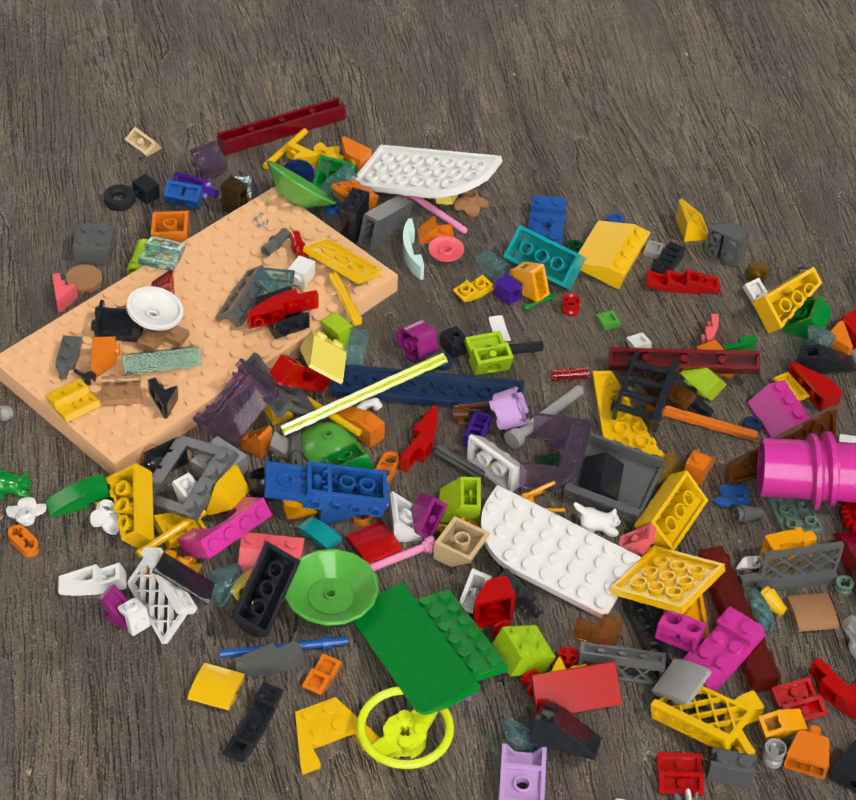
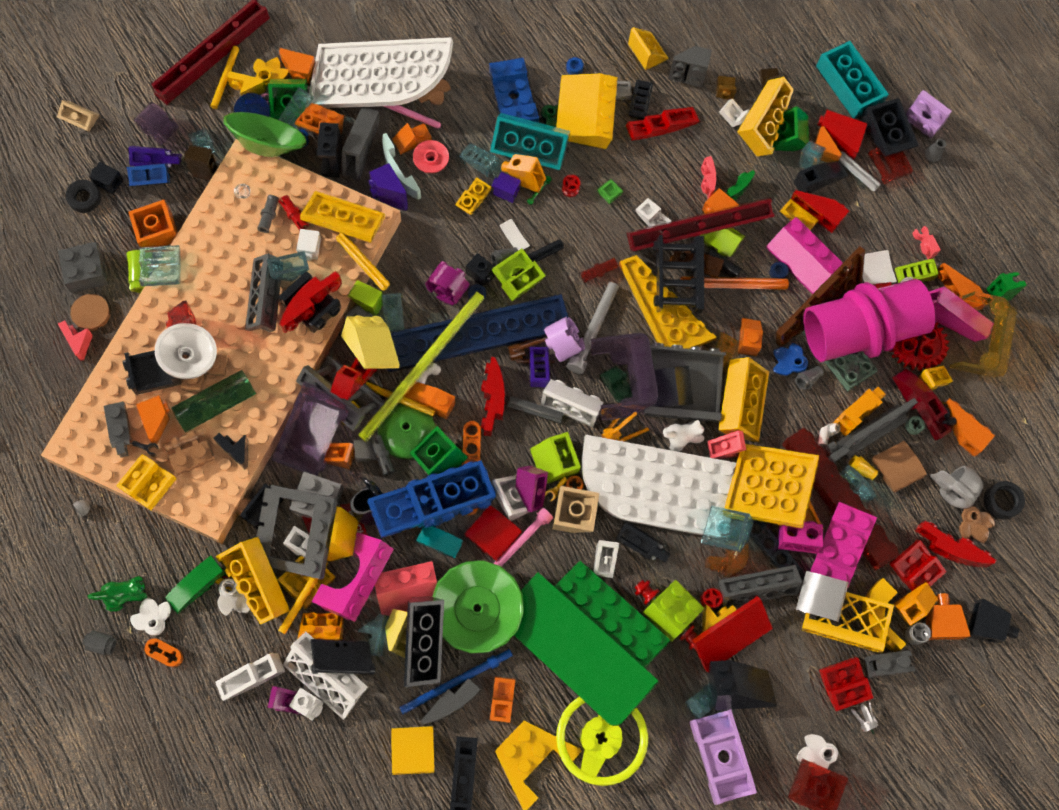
camera: 25 degrees left, 25 degrees up
(395, 255) = (387, 187): none -> dark purple slope
(494, 602) = (629, 566): red slope -> none
(608, 598) = (727, 529): none -> clear light blue slope

